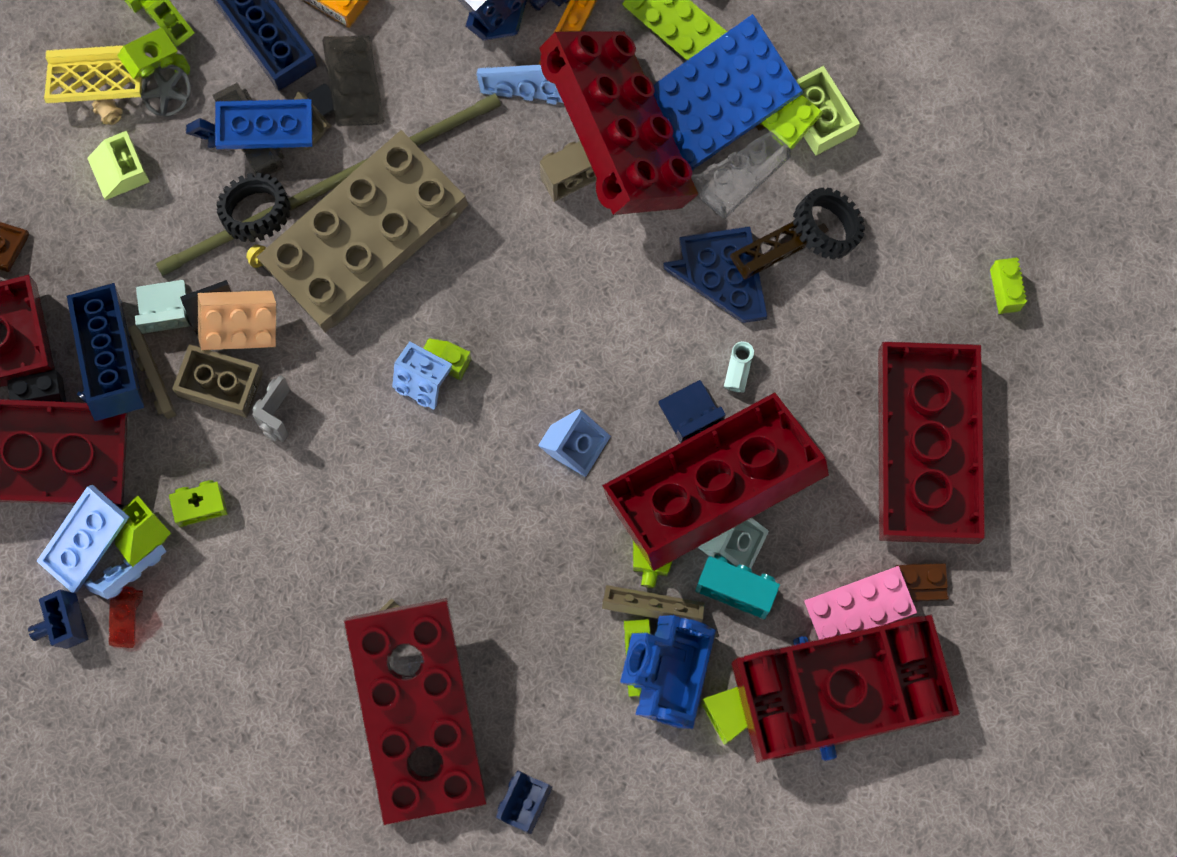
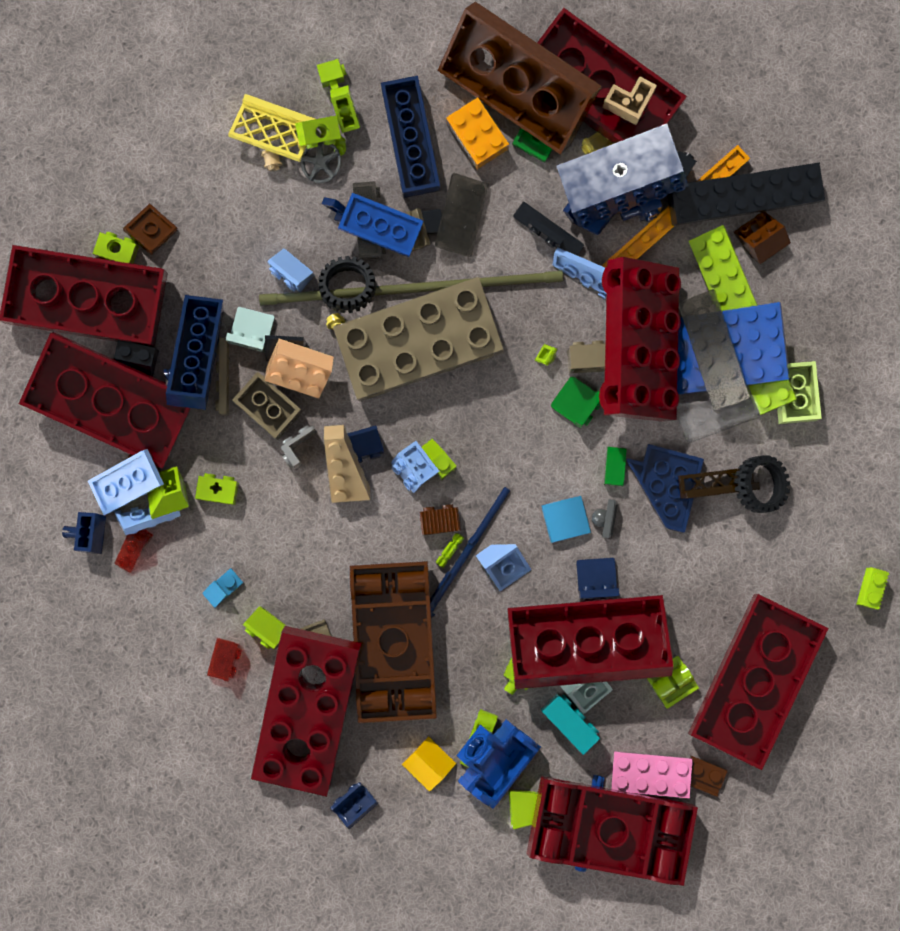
camera: 25 degrees right, 10 degrees up
(117, 166) = (261, 207): yellowish green slope -> none
(180, 220) = (289, 268): none -> light blue slope
(253, 616) = (222, 588): none -> dark azure slope
(290, 699) = (224, 659): none -> clear red bracket
(324, 636) = (264, 626): none -> lime slope
(340, 412) = (344, 471): none -> tan wedge
(348, 376) = (366, 443): none -> dark blue slope
(455, 56) = (546, 229): none -> black bracket
(478, 425) = (439, 520): none -> reddish brown brick
(491, 586) = (396, 637): none -> reddish brown piece
(505, 455) = (449, 550): none -> lime axle
(514, 511) = (449, 577): none -> dark blue bar
(518, 190) = (546, 355): none -> lime slope
(577, 226) = (576, 402): none -> green bracket
(592, 714) = (429, 764): none -> yellow slope
(624, 361) = (565, 519): none -> dark azure slope
(650, 604) = (505, 707): dark tan plate -> none
(654, 280) = (615, 466): none -> green slope
(670, 340) = (606, 518): none -> dark grey tile
(705, 100) = (714, 350): none -> clear smoke plate
(738, 369) = (645, 563): light aqua piece -> none
(834, 493) = (674, 687): none -> lime plate

